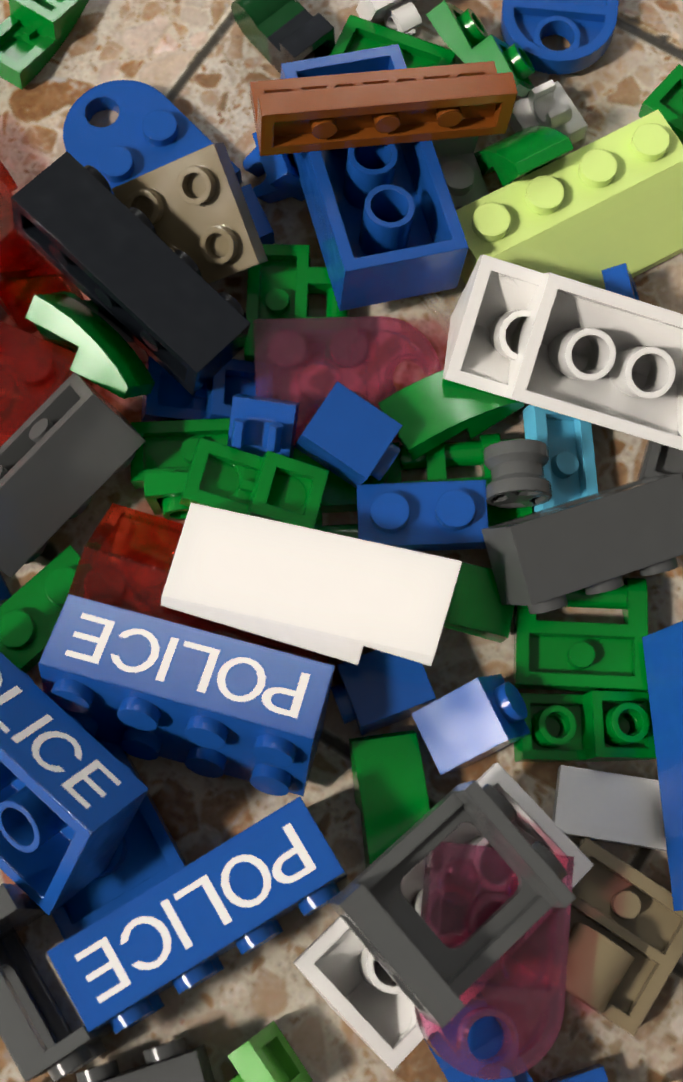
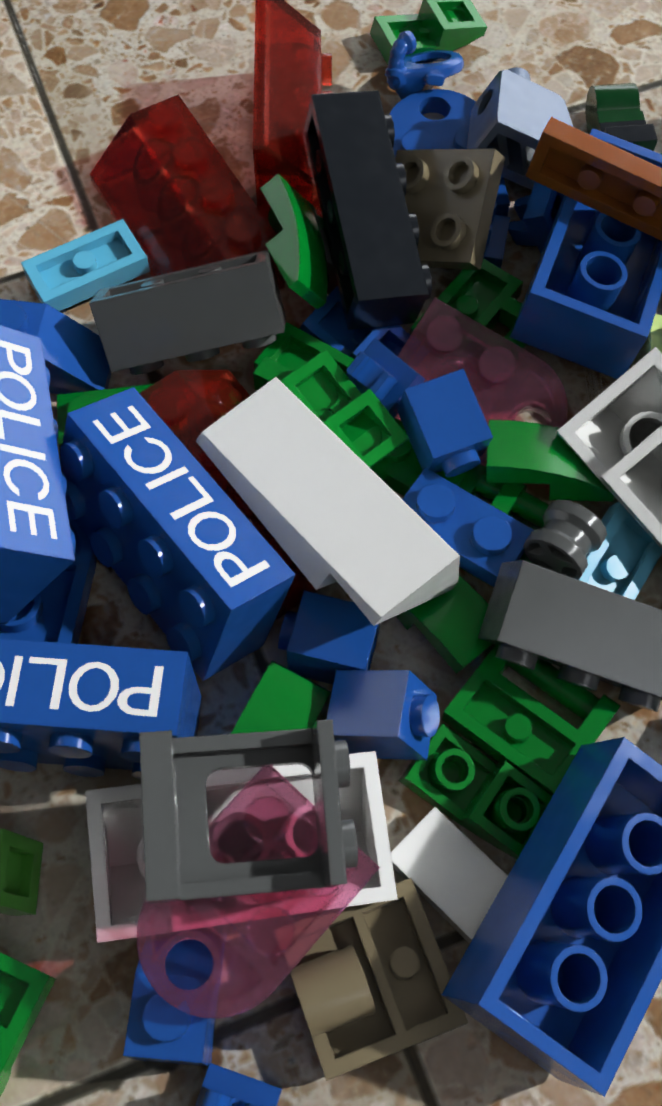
camera: 30 degrees right, 10 degrees down
(59, 92) = (409, 76): none -> blue piece
(198, 89) = (512, 119): none -> sand blue torso

